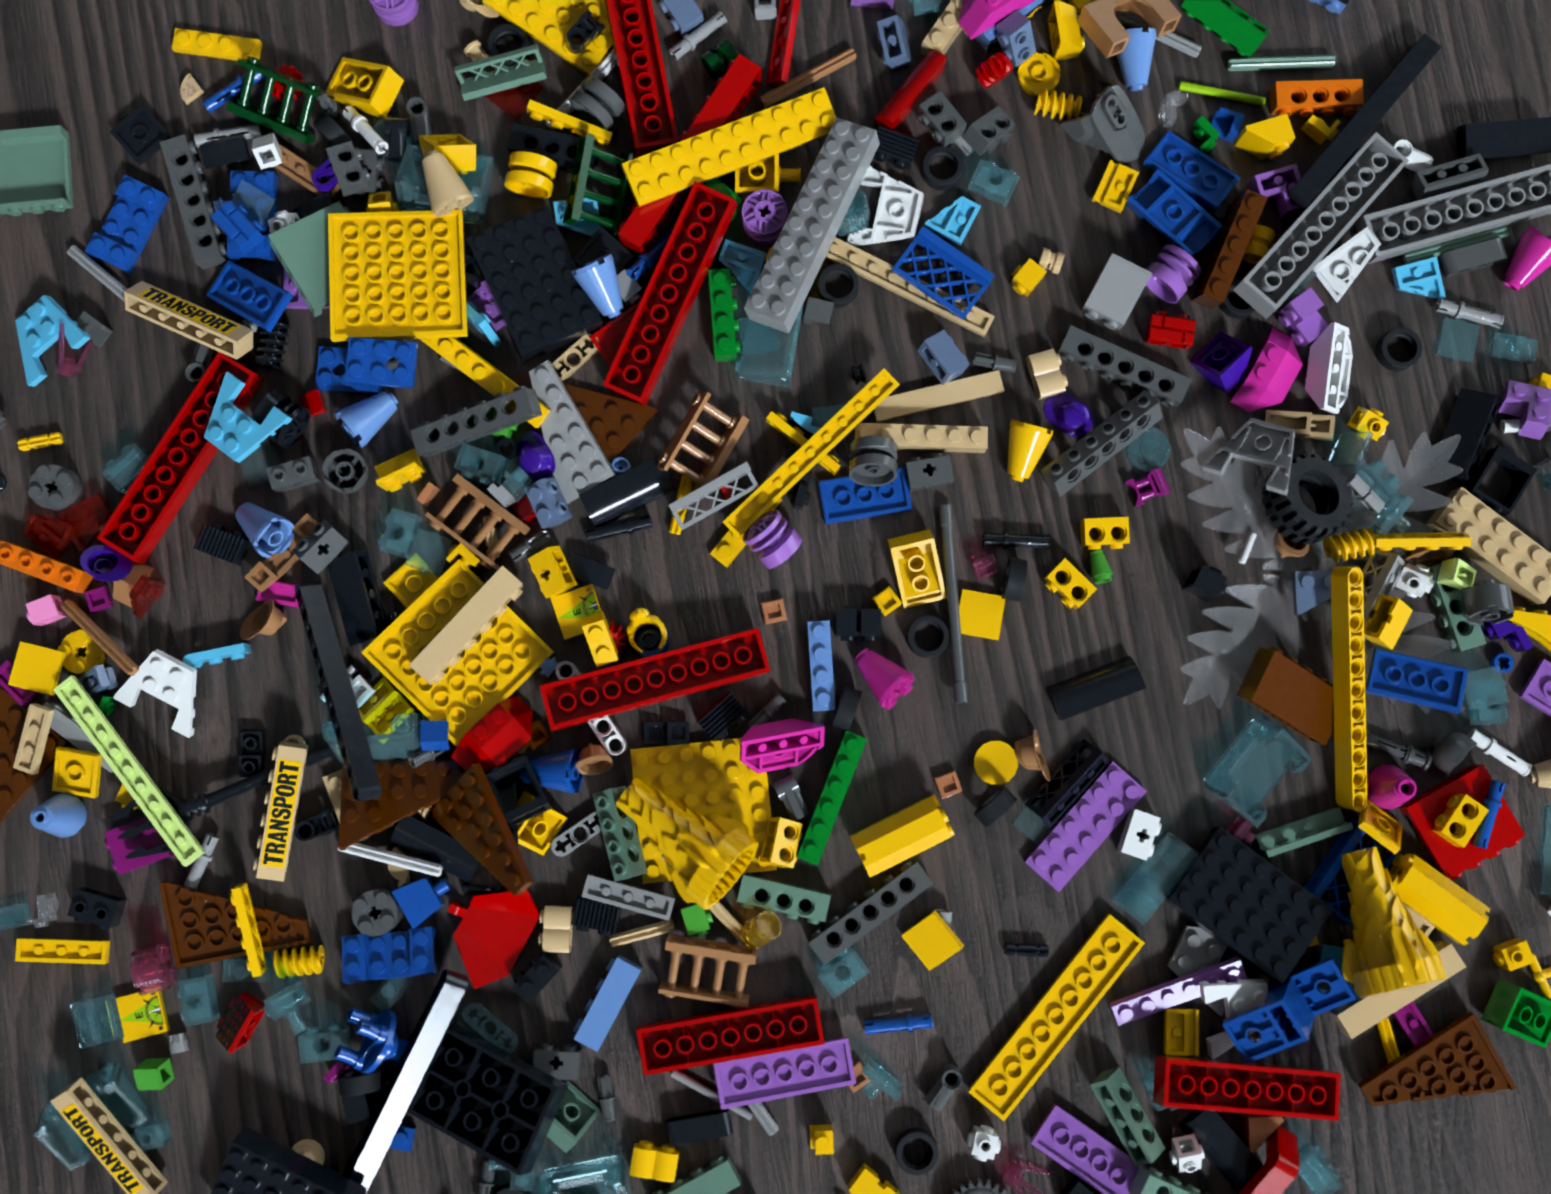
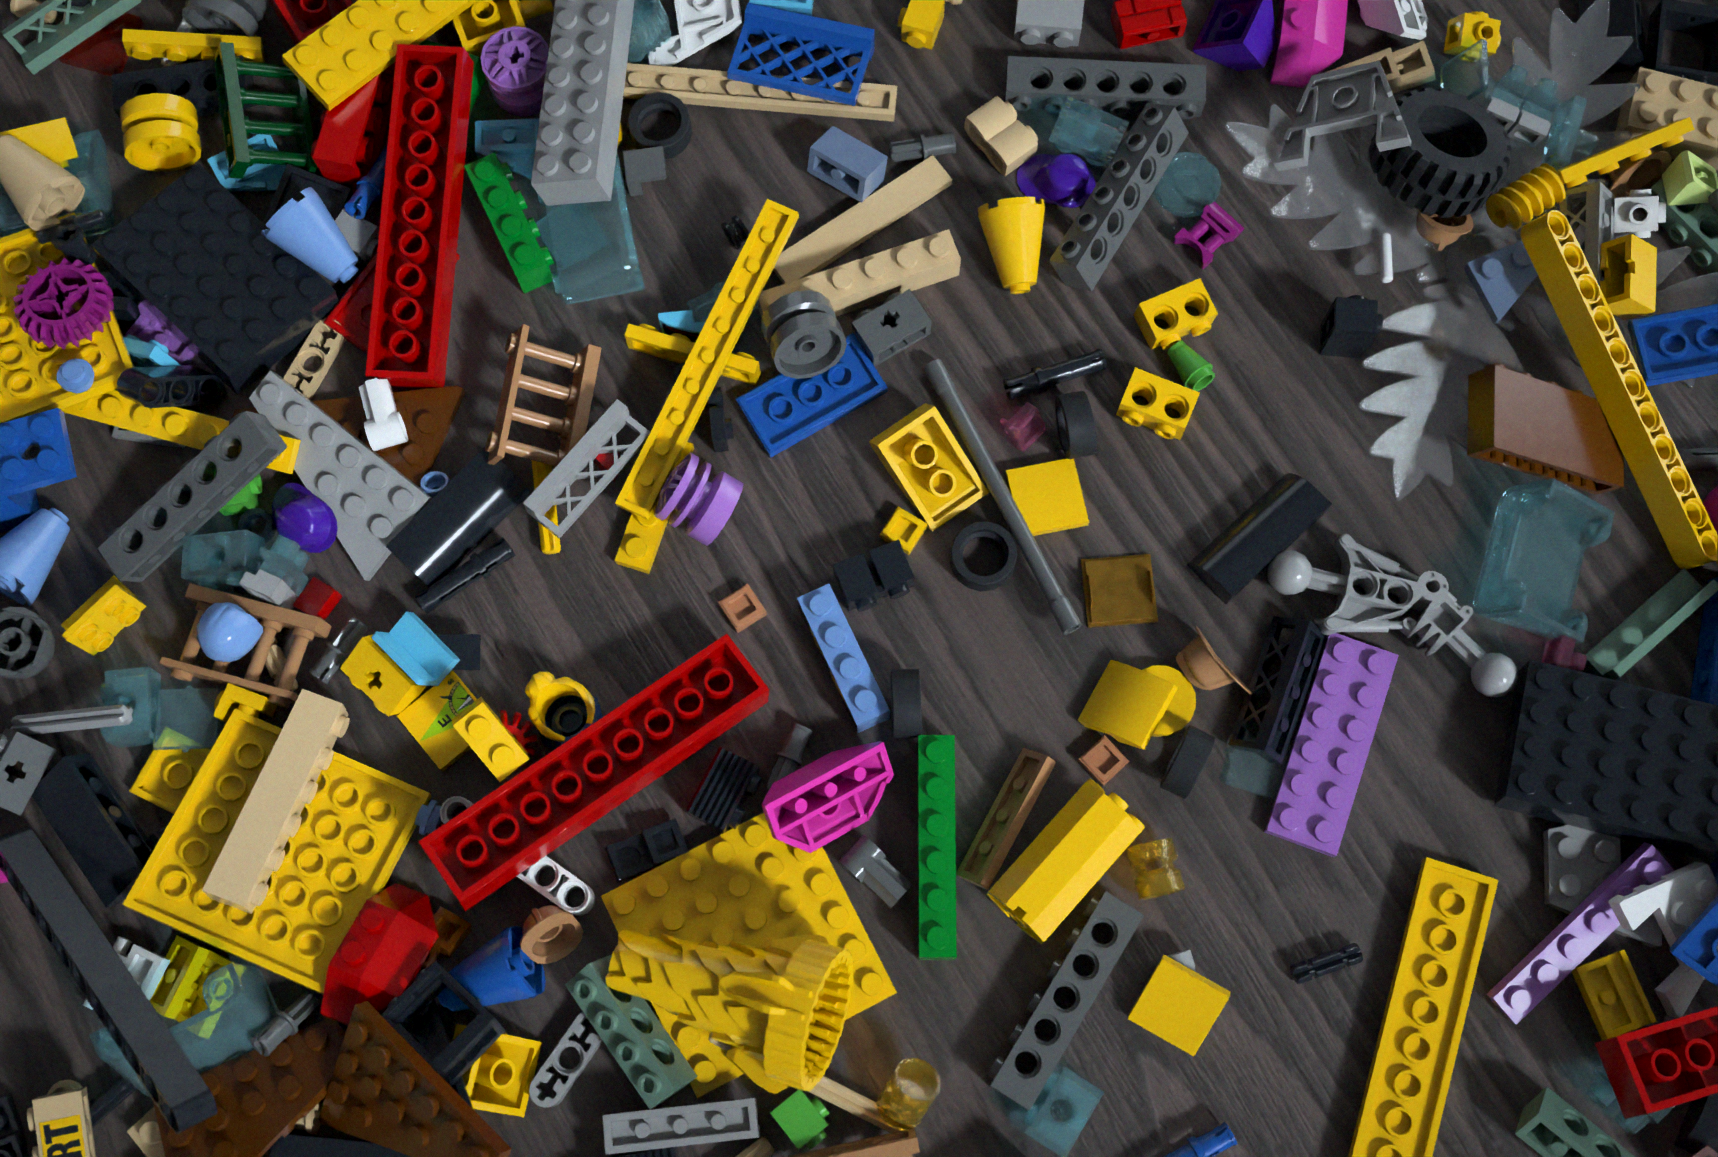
camera: 20 degrees left, 10 degrees down
(364, 529) = (72, 719): none -> light grey axle
(427, 494) = (156, 633): nougat tile -> none
(432, 323) = (75, 375): none -> medium blue plate
(434, 735) = (282, 990): blue panel -> none
(455, 231) = (70, 238): none -> black piece
(457, 277) = (67, 285): none -> magenta gear
(470, 514) = (227, 632): none -> medium blue hair
(485, 346) = (170, 386): none -> black beam
(548, 502) = (343, 574): sand blue brick -> none
(575, 566) = (417, 650): none -> medium azure panel
(603, 417) = (383, 423): none -> white piece
(776, 841) = (879, 945): yellow brick -> none
(819, 899) = (980, 1012): sand green brick -> none
(878, 796) = (1005, 818): none -> medium nougat plate
(884, 677) = (944, 638): dark pink cone -> none
(951, 867) = (1159, 881): none -> clear yellow wheel
(975, 758) = (1127, 704): none -> yellow slope
(999, 687) = (1119, 590): none -> pearl gold piece
(1100, 394) = (1088, 132): none -> clear light blue brick
(1139, 822) = (1407, 737): white brick -> none
(1155, 878) = (1468, 777): clear light blue brick -> none
(1175, 783) = (1374, 612): none -> light grey piece

